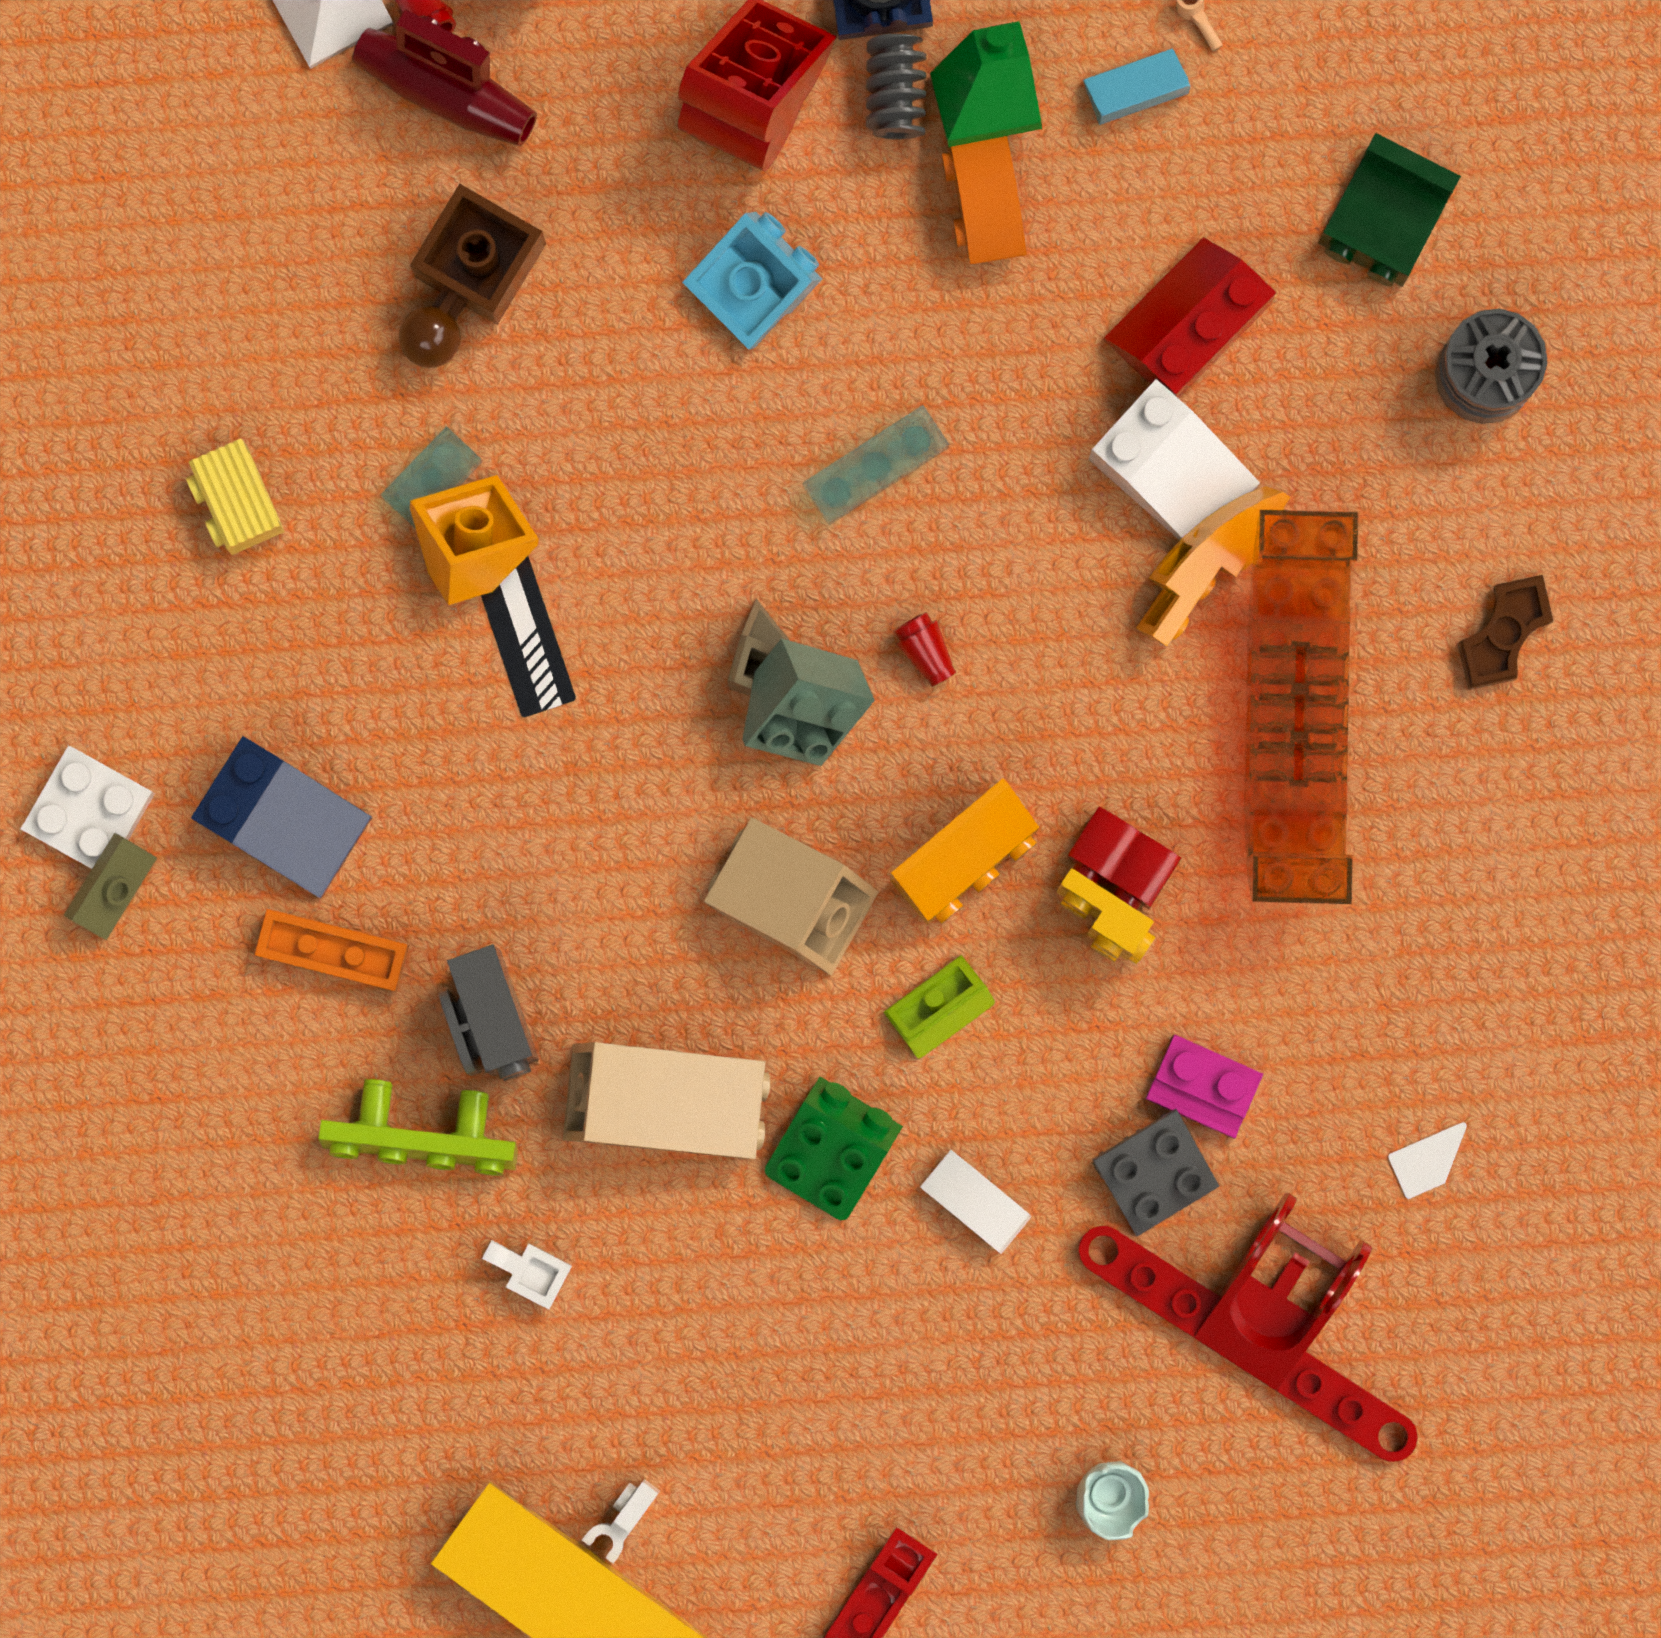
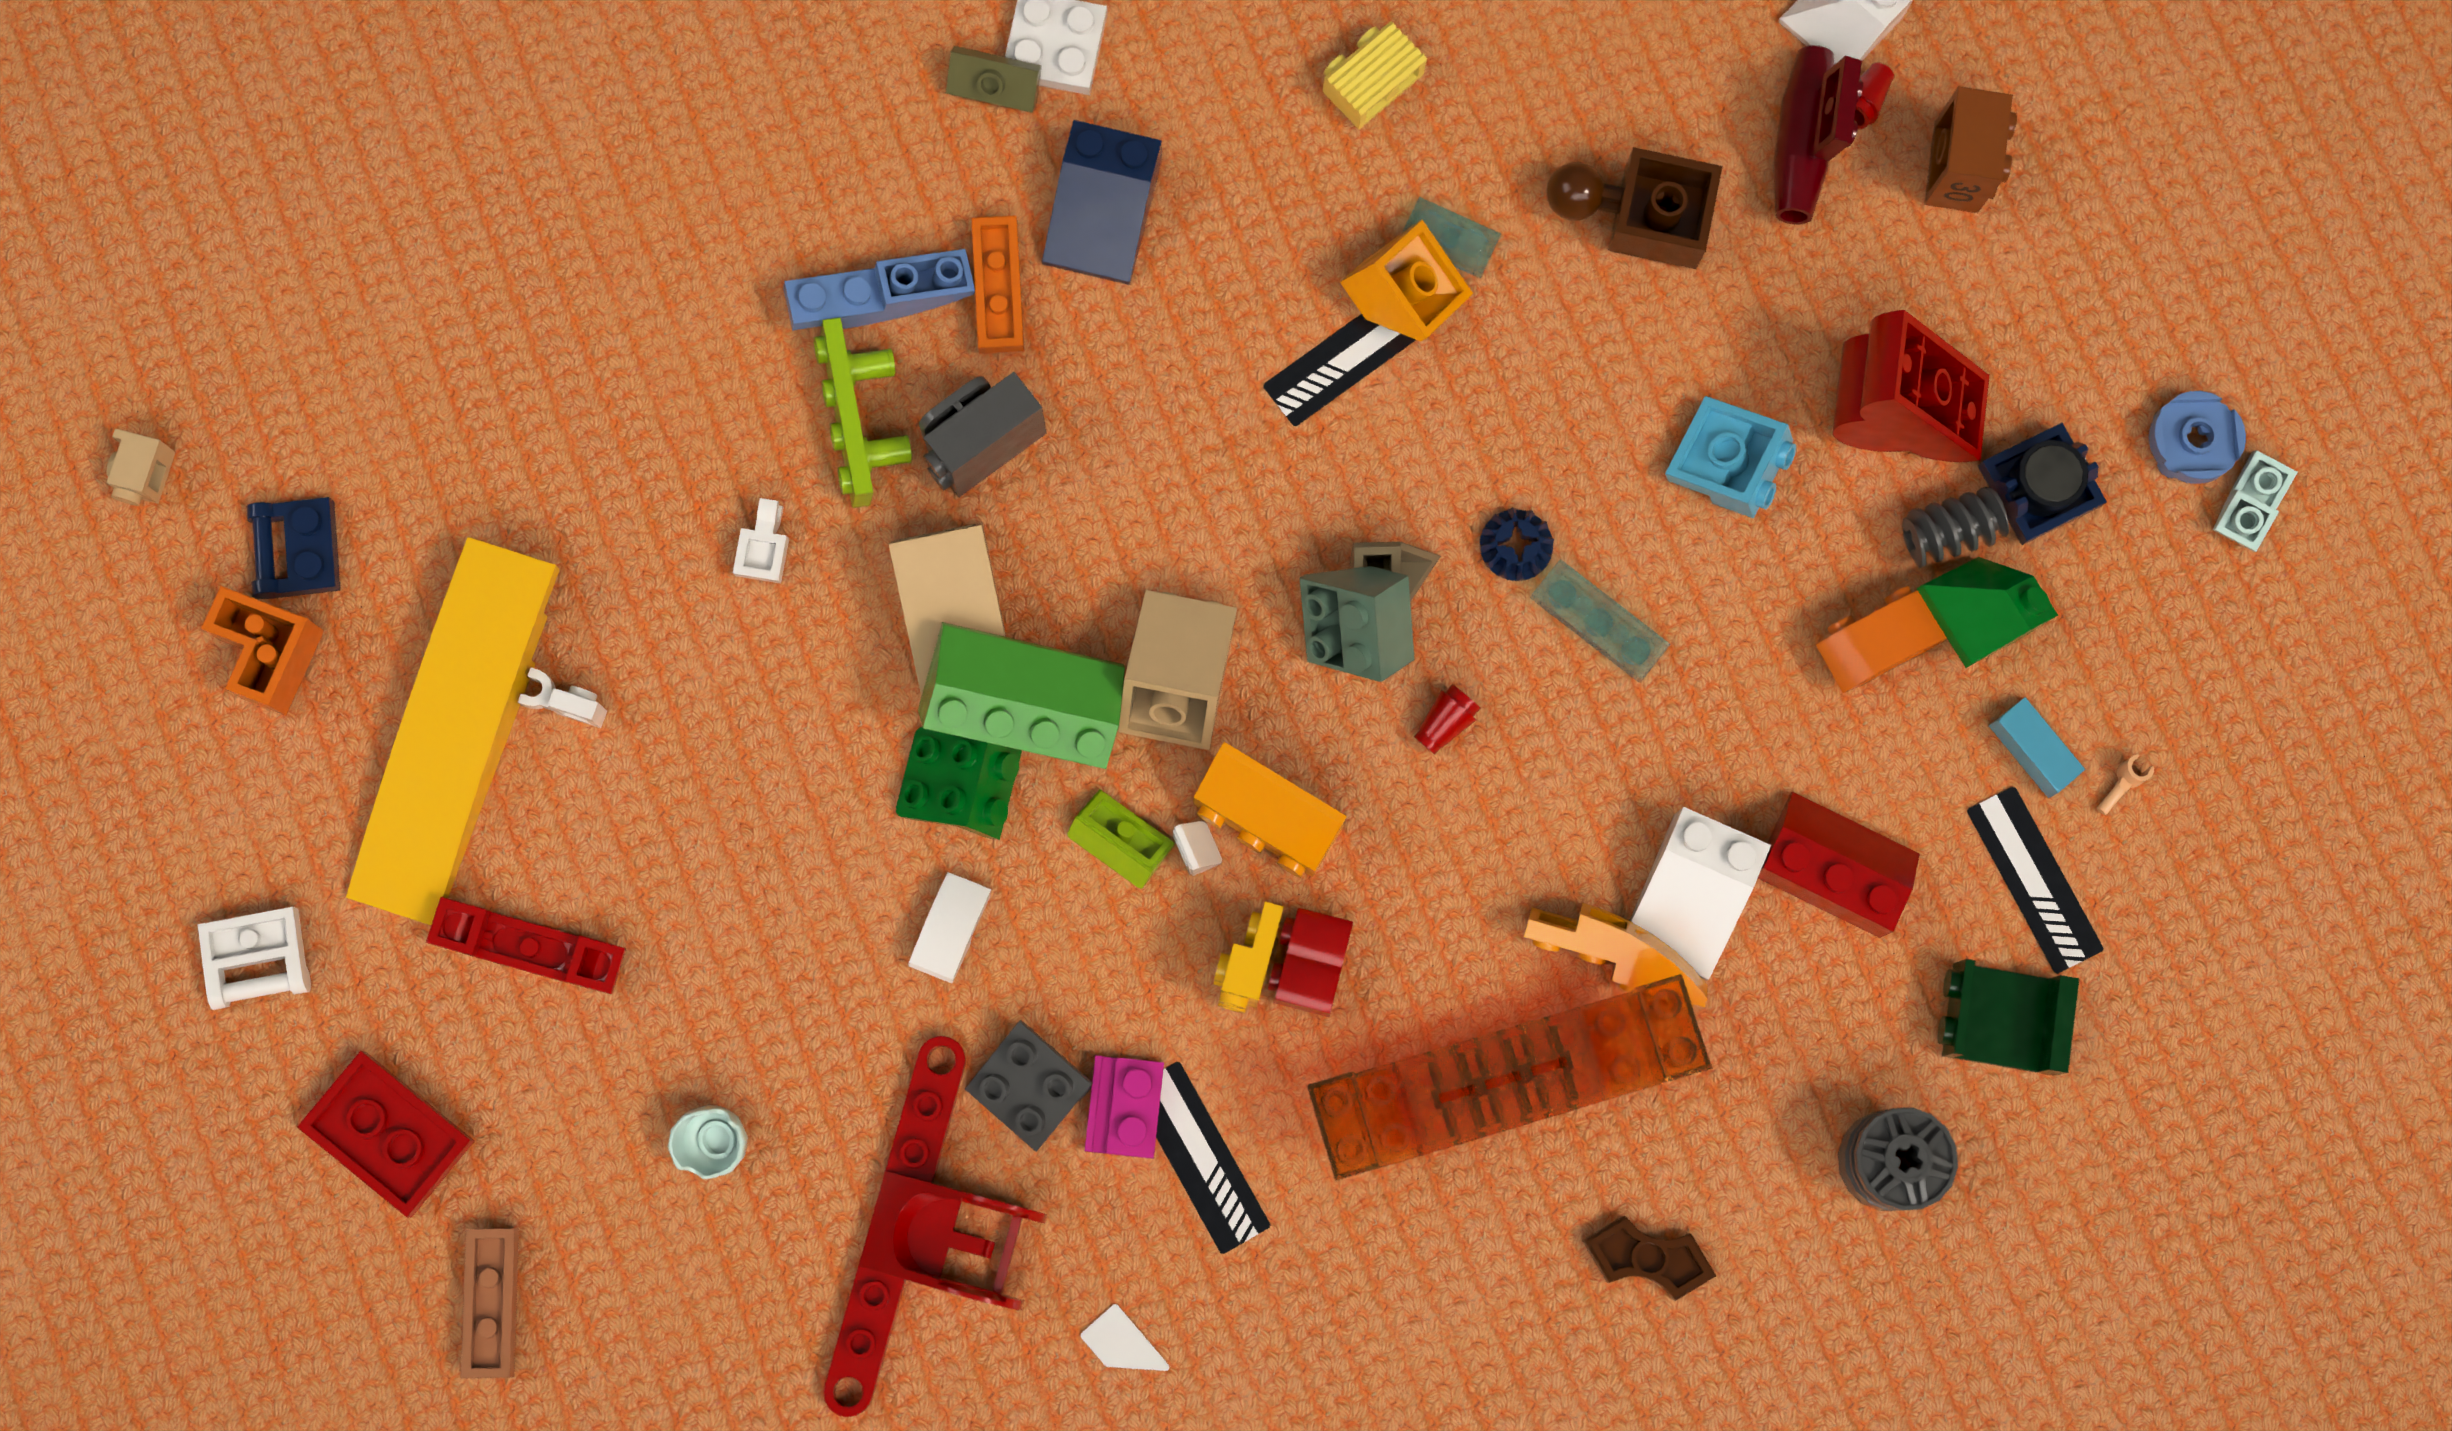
camera: 65 degrees right, 5 degrees down
(301, 1072) = (882, 293): none -> medium blue slope
(777, 1056) = (1022, 696): none -> bright green slope
(784, 537) = (1502, 559): none -> dark blue gear
(973, 934) = (1196, 847): none -> white slope
(1262, 135) = (2035, 880): none -> black sticker
(1283, 1025) = (1206, 1164): none -> black sticker

